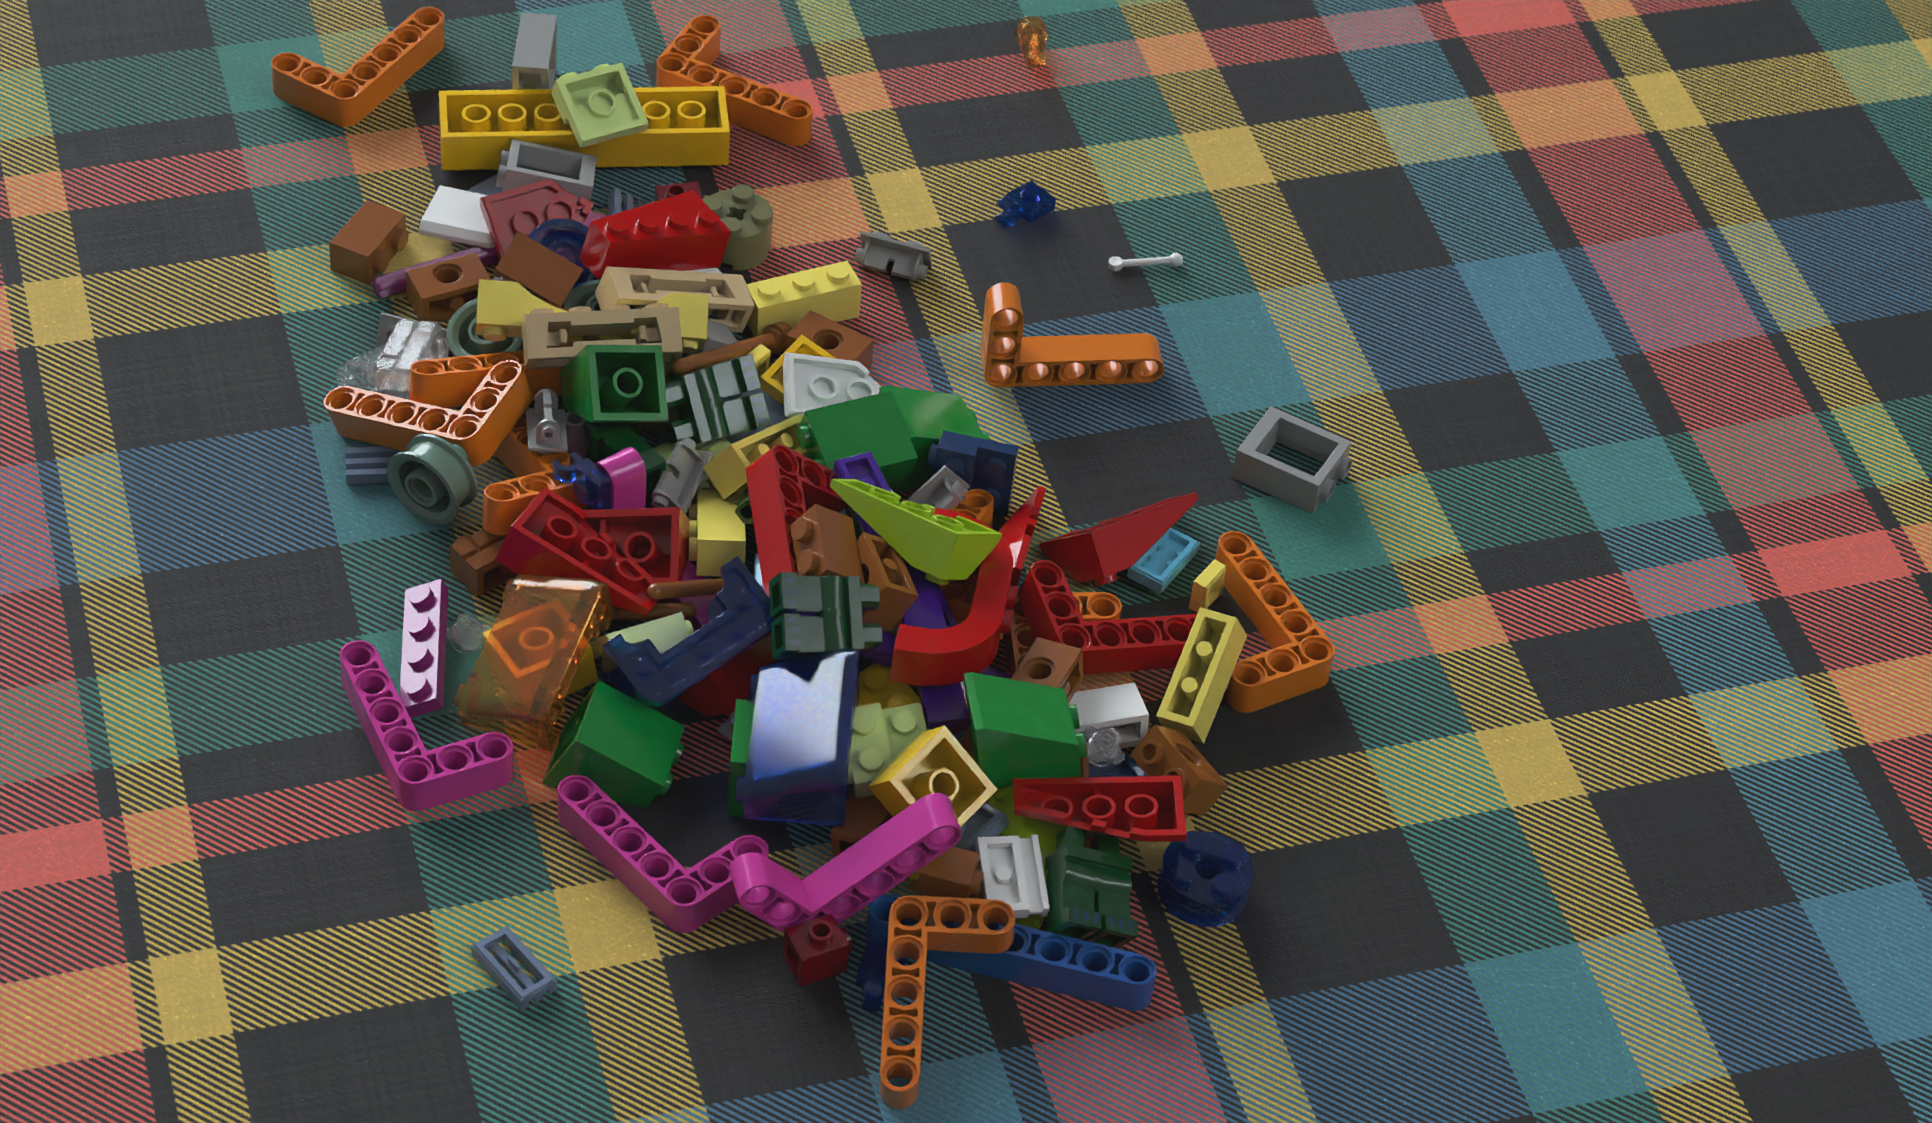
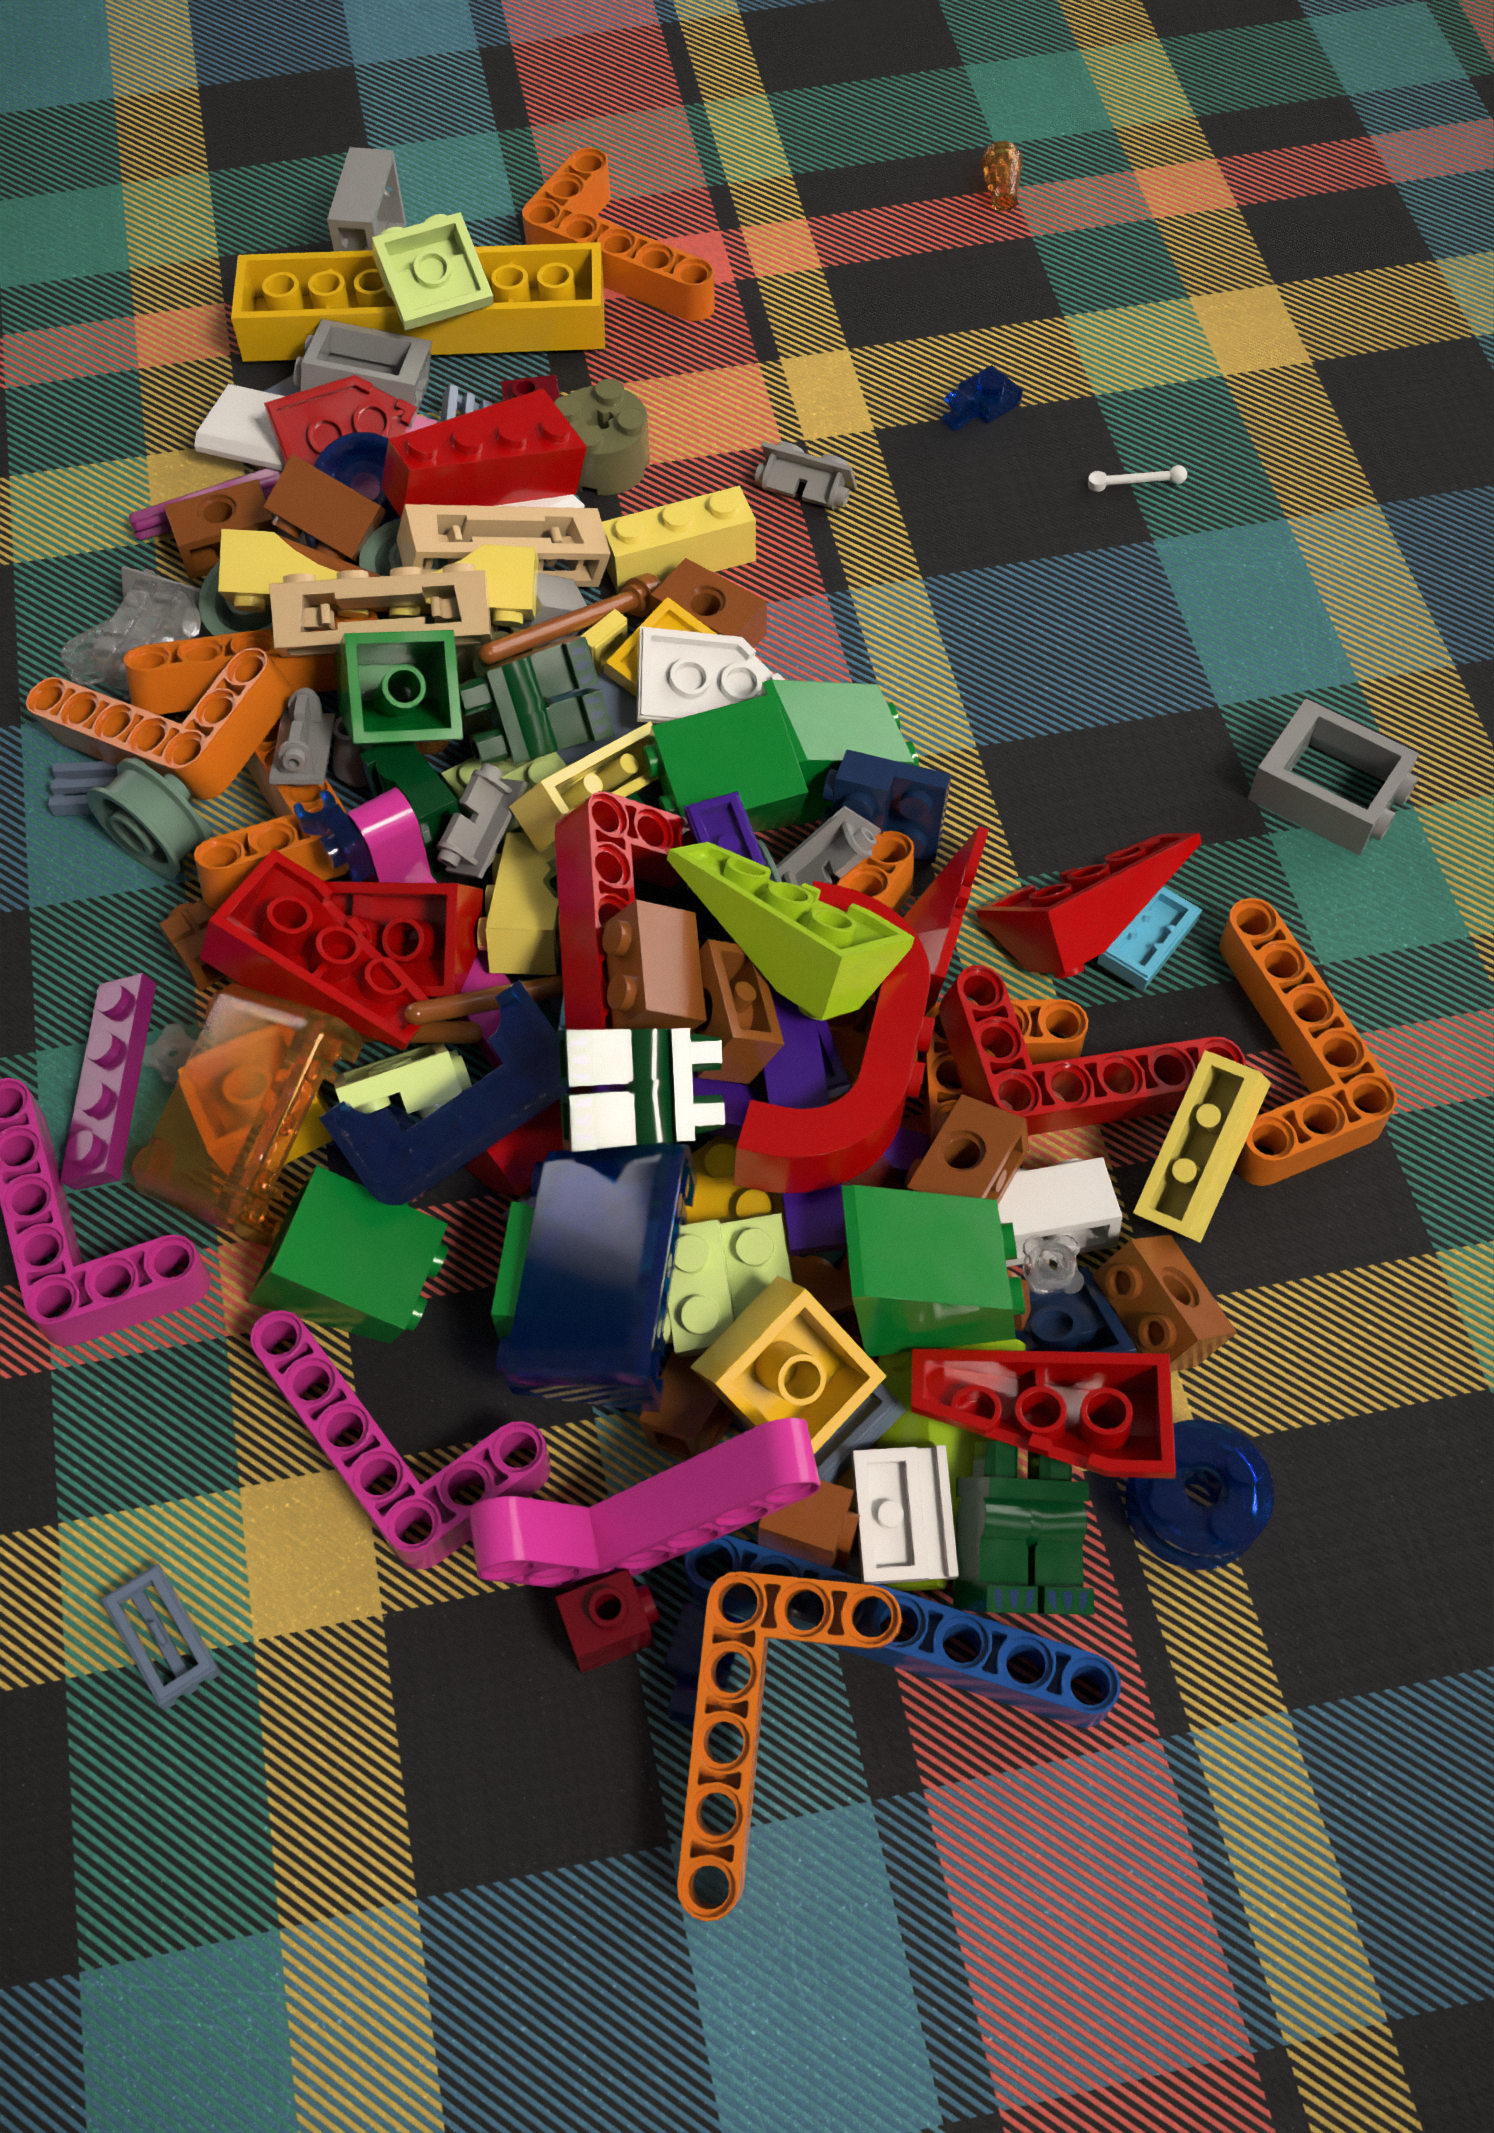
camera: 10 degrees right, 15 degrees up
(368, 242) = (129, 463): dark orange brick -> none
(369, 81) = (170, 239): orange beam -> none
(1058, 360) = (1017, 625): orange beam -> none
(1207, 586) = (1211, 982): light yellow tile -> none

